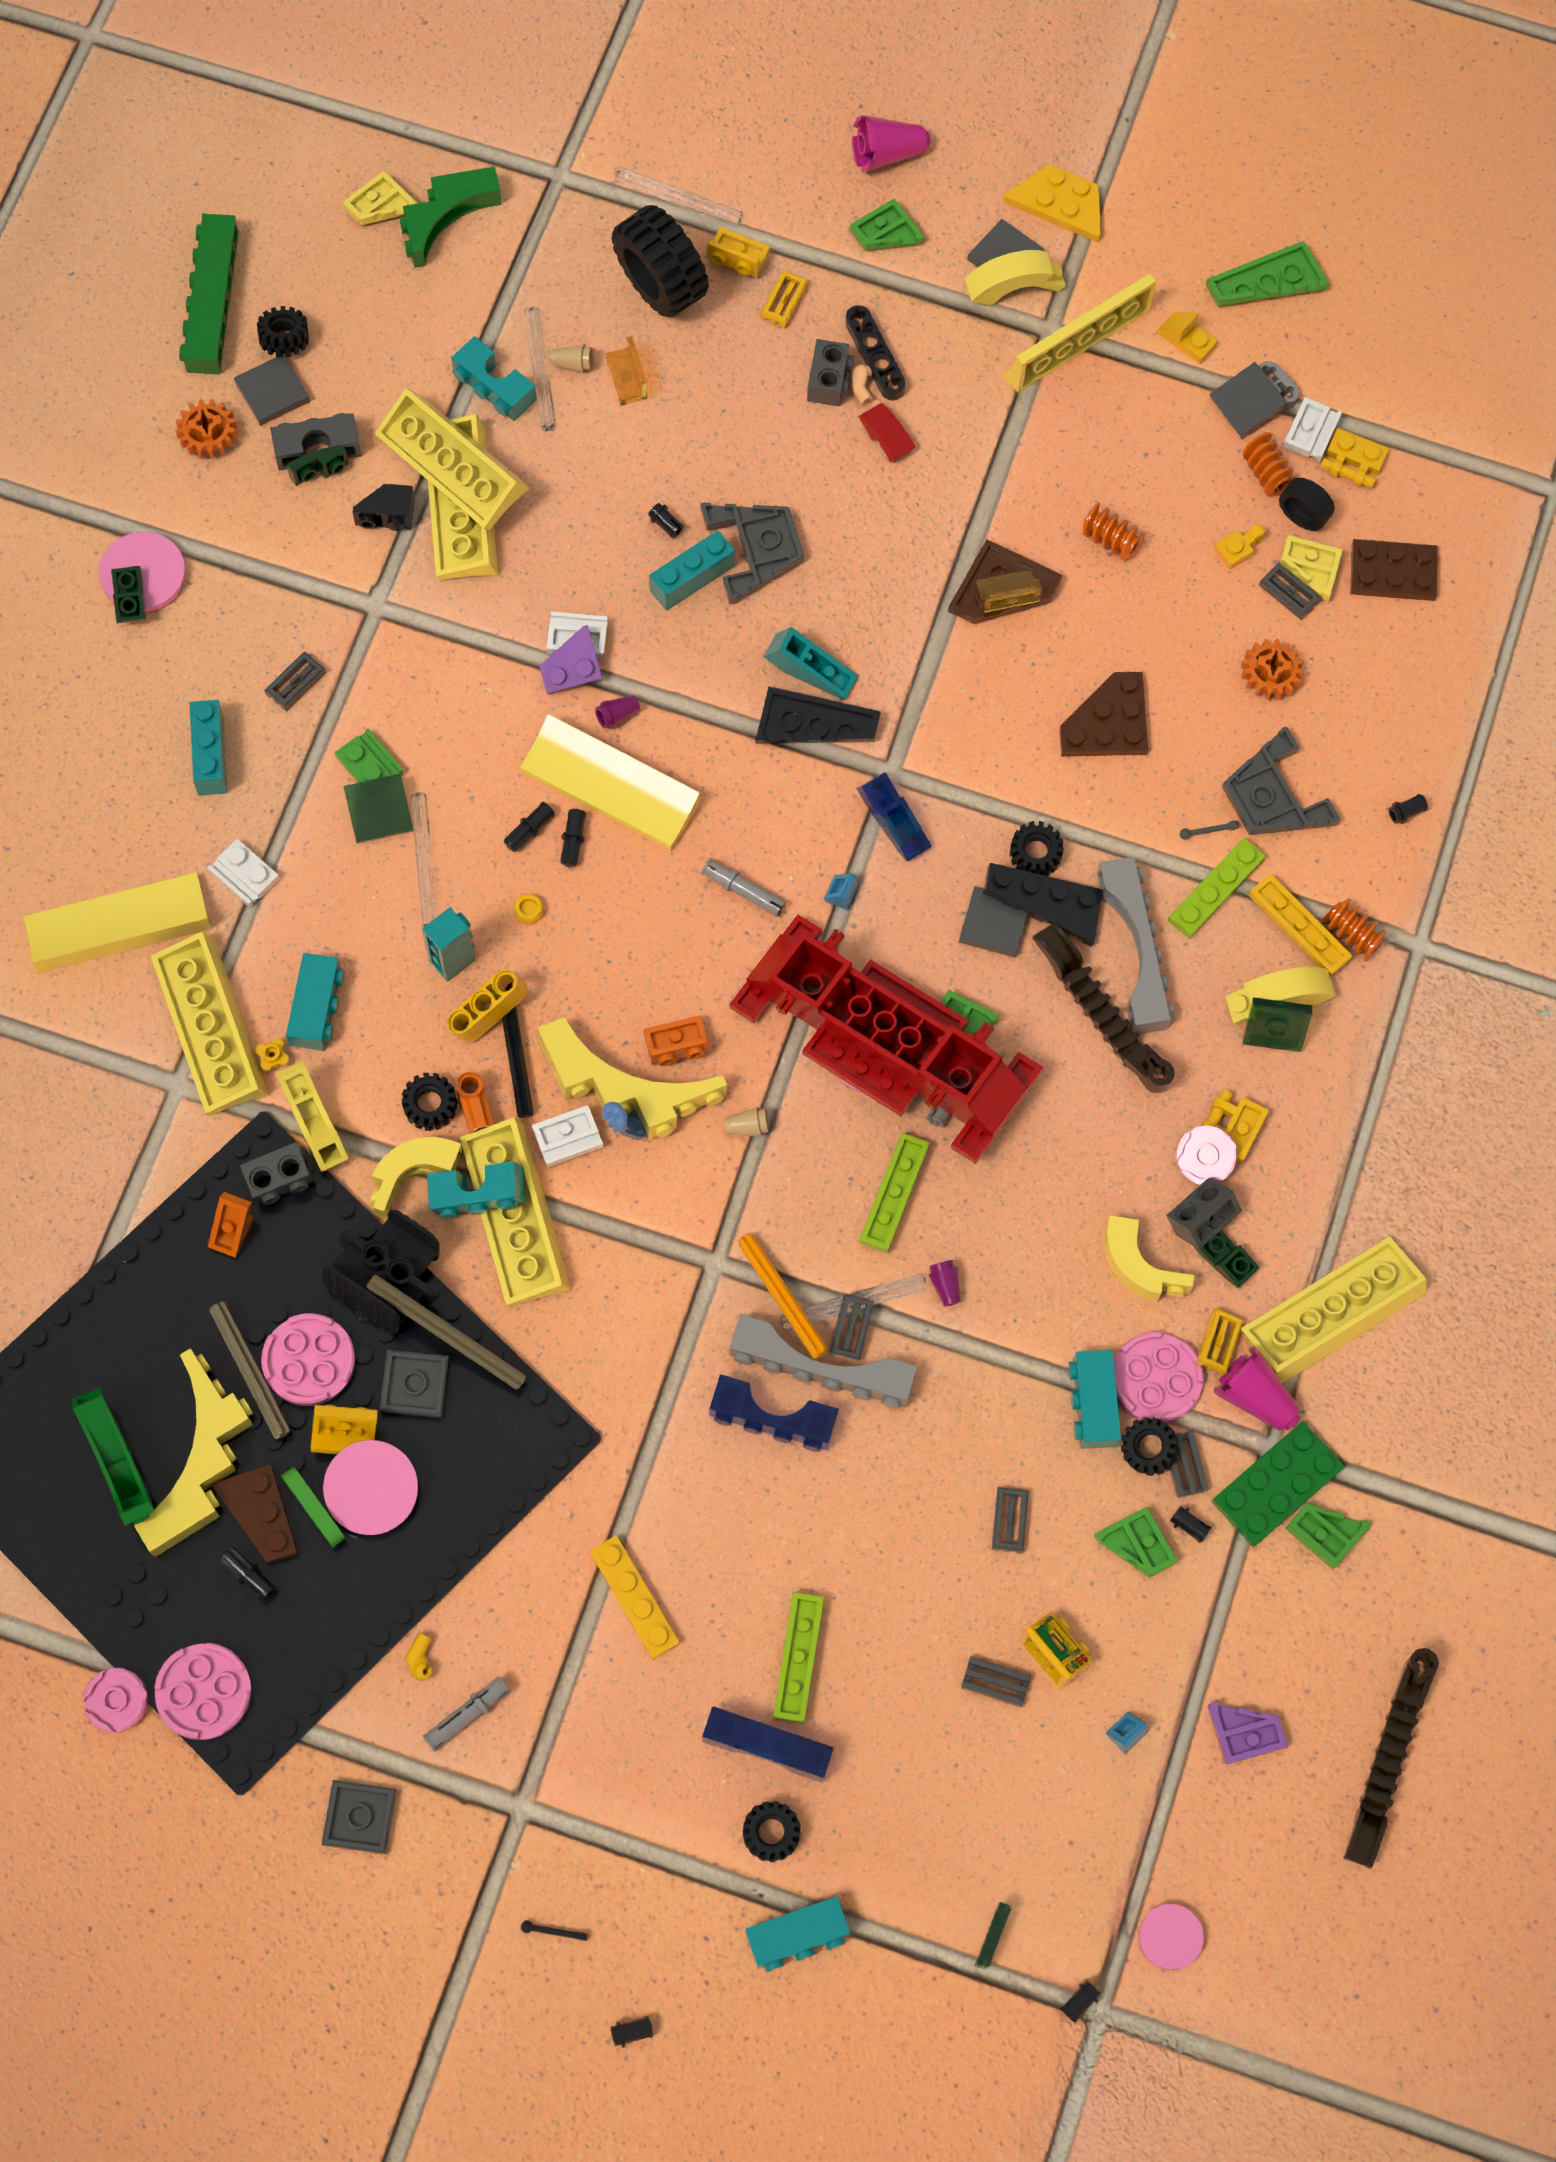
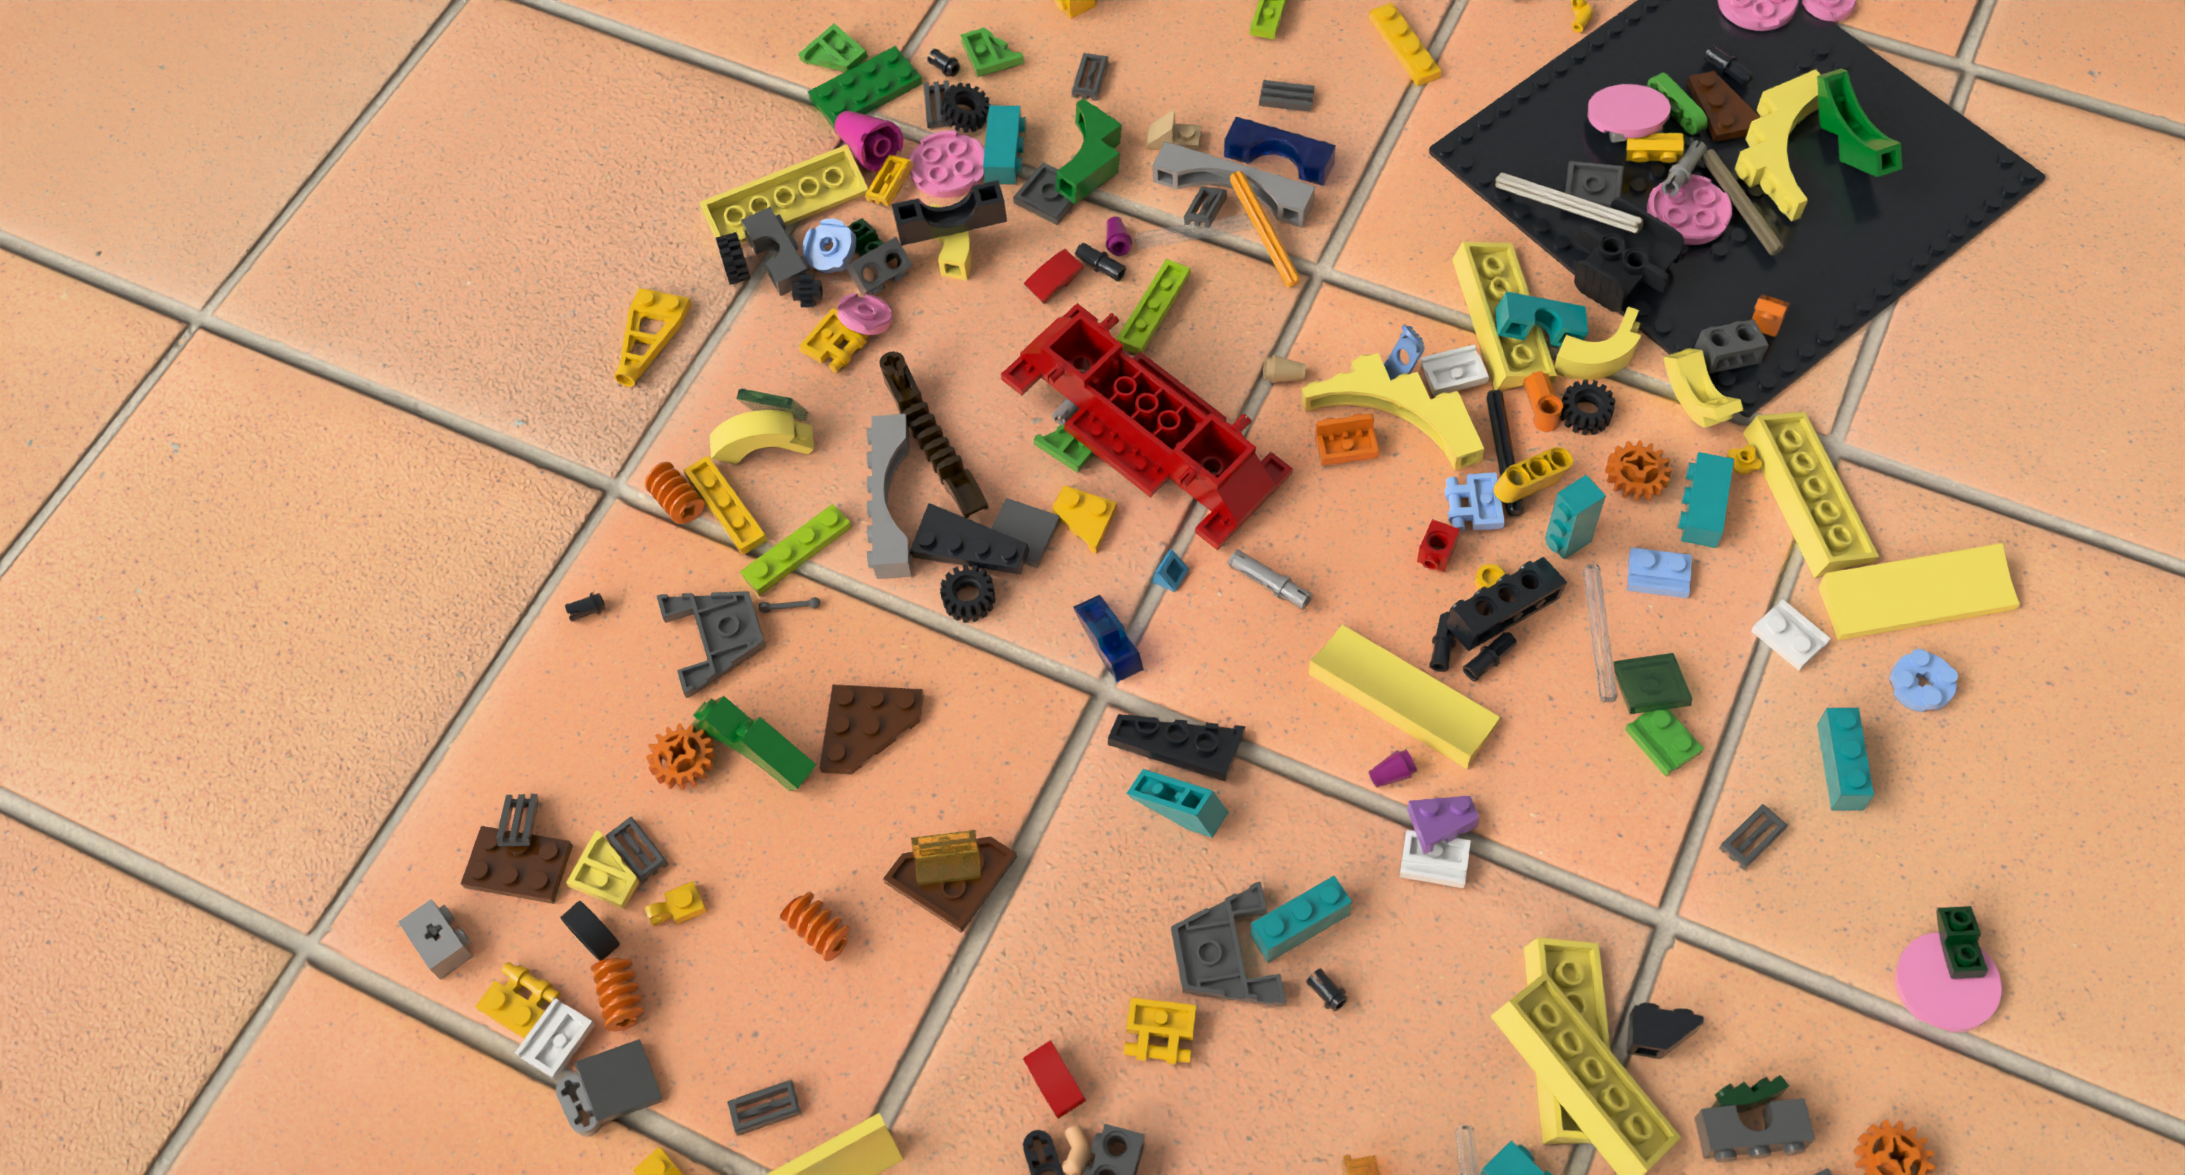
camera: 165 degrees left, 10 degrees down
(125, 851) = (1935, 670): none -> light blue plate
(314, 1395) = (1681, 172): none -> light grey pin
(364, 927) = (1659, 572): none -> light blue plate
(392, 1030) = (1638, 470): none -> orange gear
(518, 852) = (1505, 603): none -> black brick
(536, 975) = (1484, 507): none -> light blue plate
(580, 942) = (1438, 535): none -> red brick
(775, 1493) = (1288, 93): none -> dark grey tile
(804, 485) = (1160, 1020): none -> yellow plate
(899, 1434) = (1167, 131): none -> tan slope
(935, 946) = (1085, 514): none -> yellow wing
(960, 1249) = (1100, 261): none -> black axle
(985, 1375) = (1096, 159): none -> green arch
(1008, 1223) = (1053, 274): none -> red slope
(1031, 1343) = (1041, 197): none -> dark grey tile
(1103, 407) = (768, 1119): none -> dark grey tile
(1112, 1266) = (979, 209): none -> black arch
(1204, 672) = (754, 740): none -> green arch
(1256, 1247) = (841, 252): none -> light blue plate
(1276, 1180) = (807, 290): none -> black gear
(1337, 1246) = (767, 233): none -> dark grey arch
(1368, 1207) = (733, 258): none -> black tyre
(1404, 600) = (519, 804): none -> dark grey tile
(1437, 1158) = (655, 306): none -> yellow plate
(1441, 496) = (439, 954): none -> light grey brick

